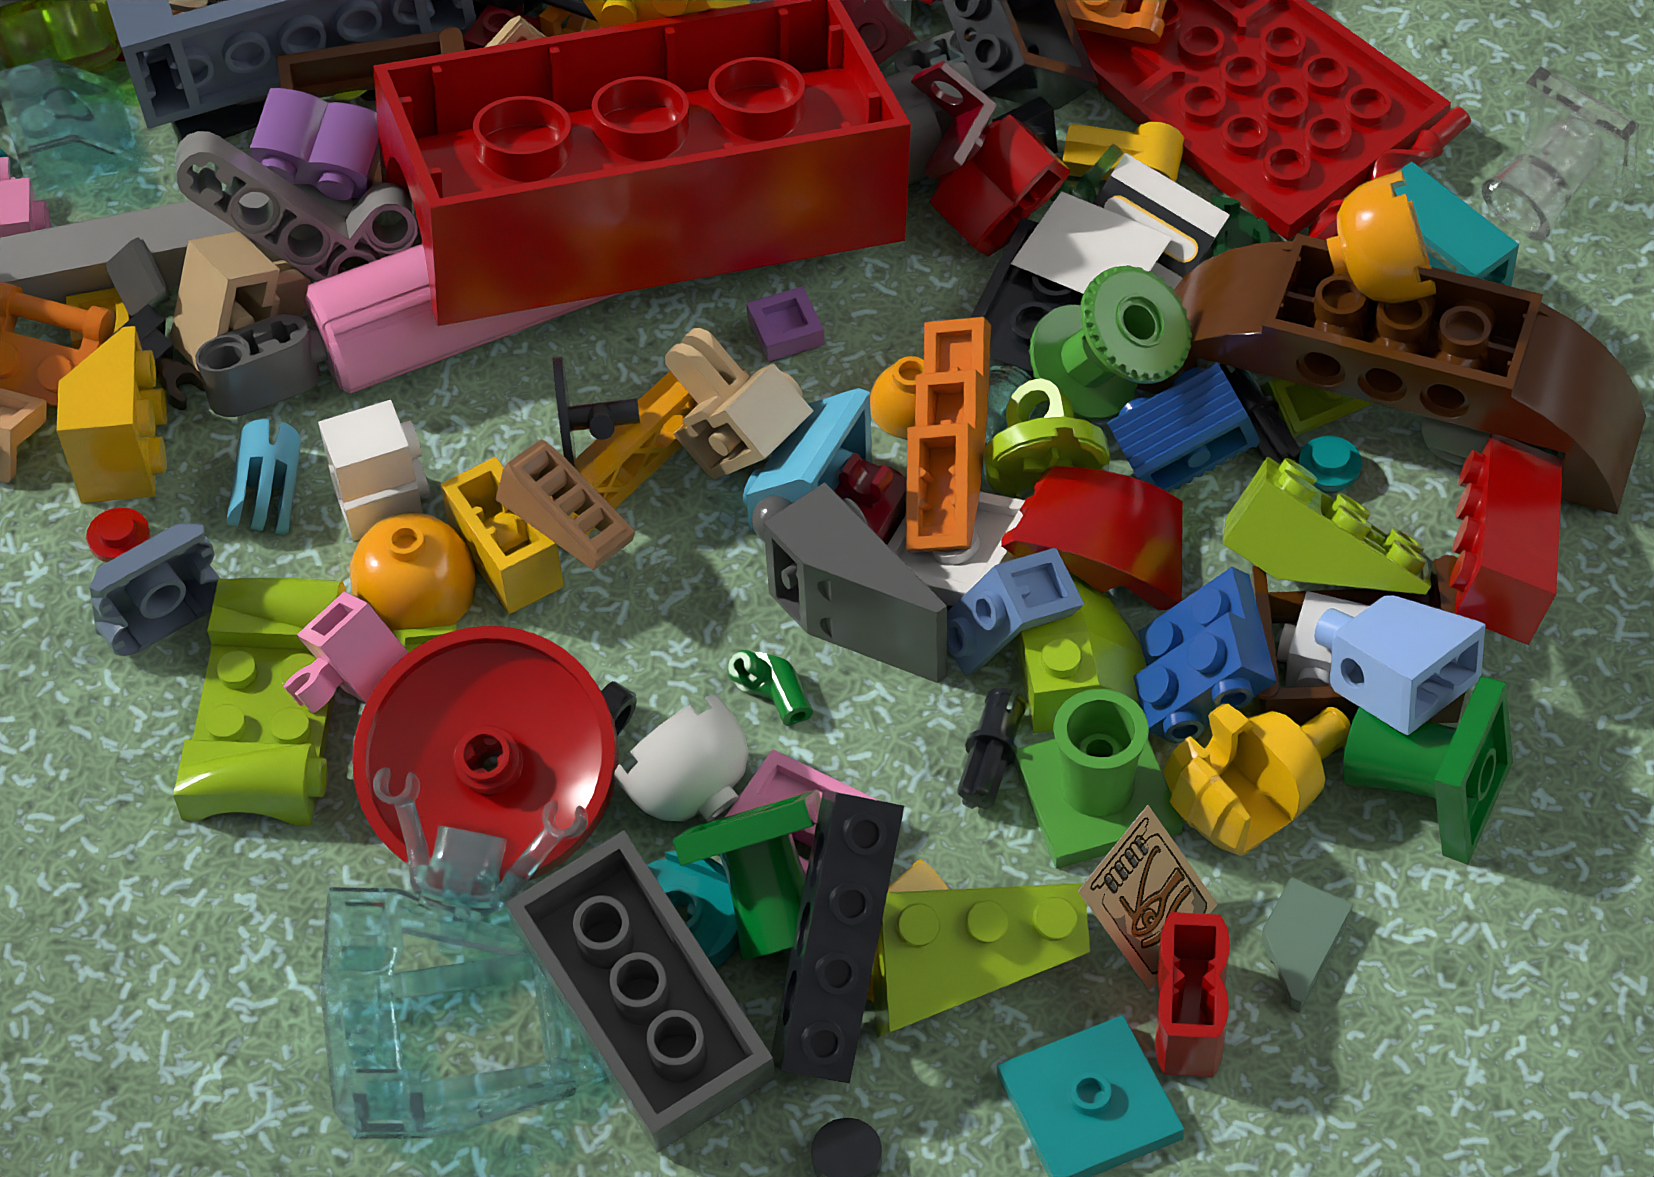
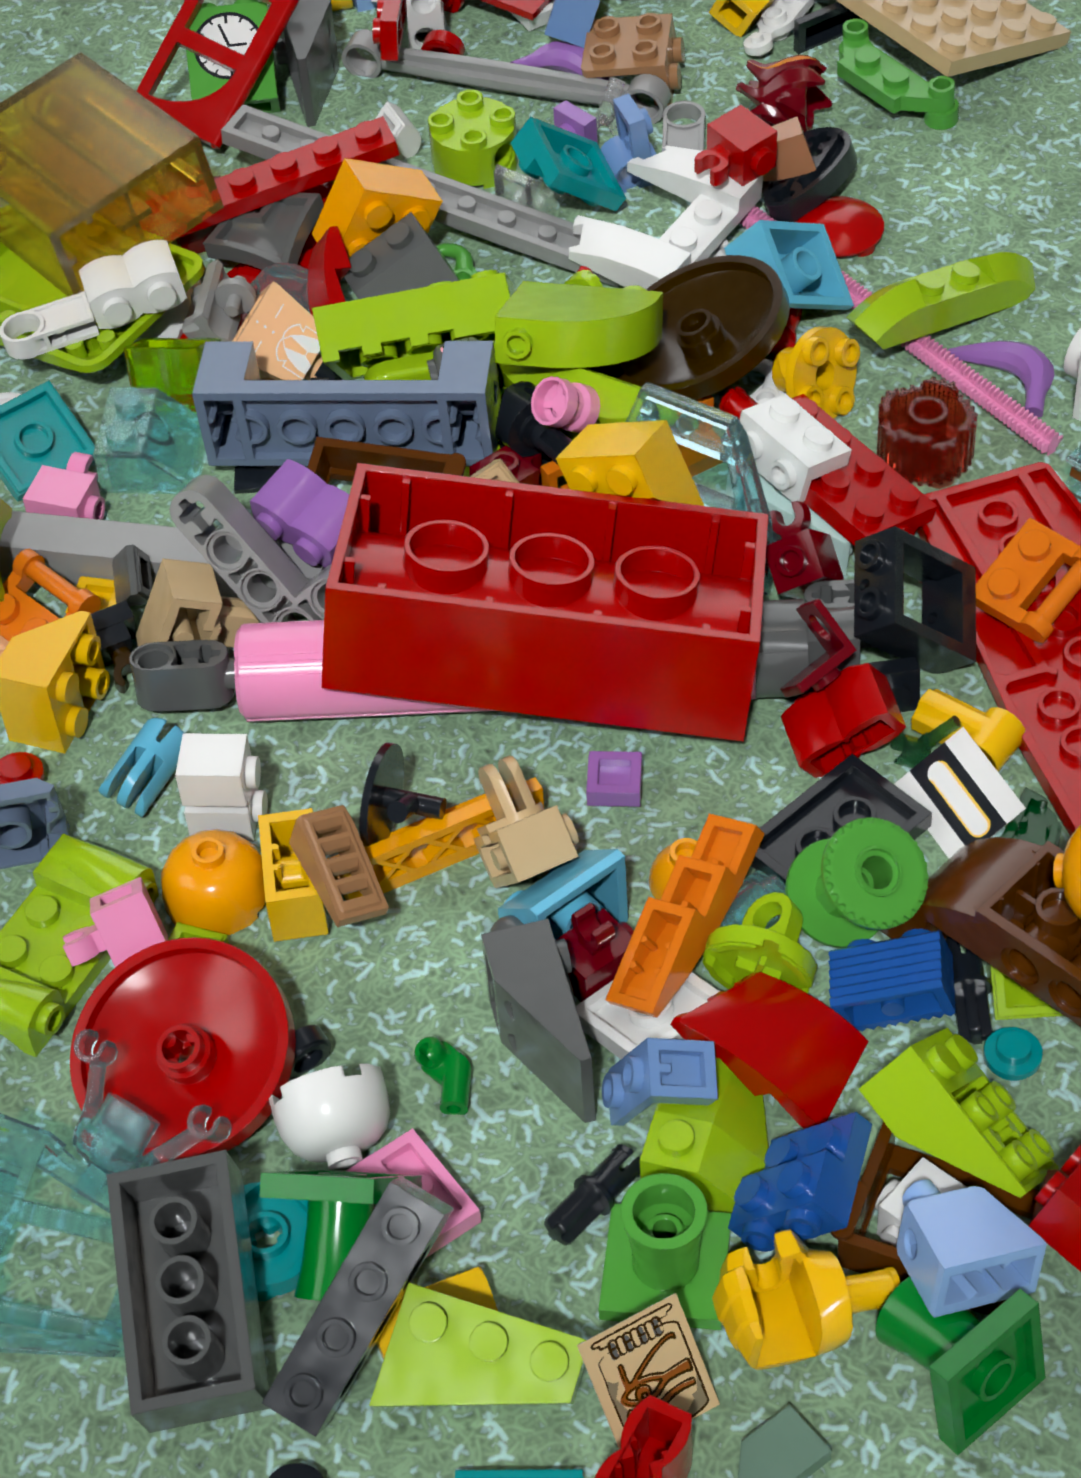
camera: 25 degrees right, 5 degrees down
(1083, 240) = (898, 791): white sticker -> none

